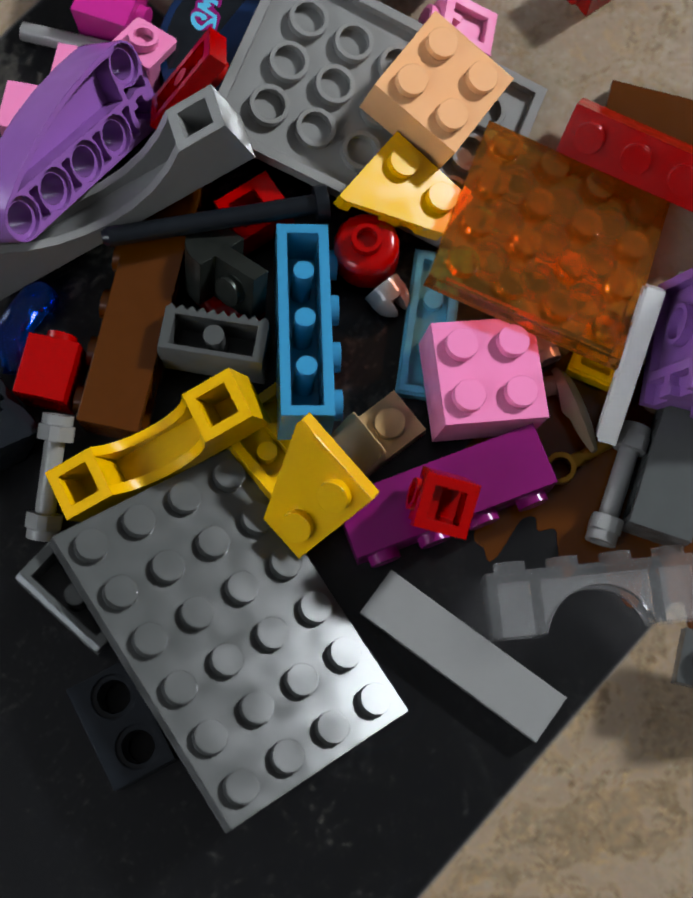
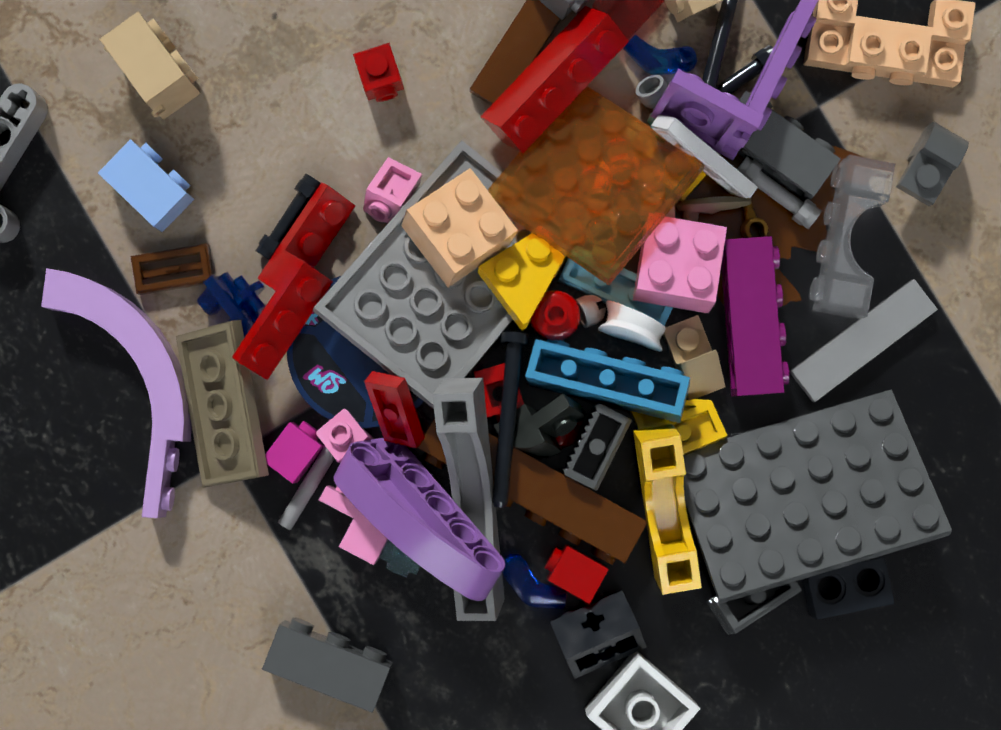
camera: 75 degrees left, 10 degrees up
(56, 431) = (628, 579): light grey bar -> none
(315, 488) = (733, 406): yellow wing -> none
(382, 345) = (632, 326): none -> white piece
(442, 502) = (768, 328): red brick -> none

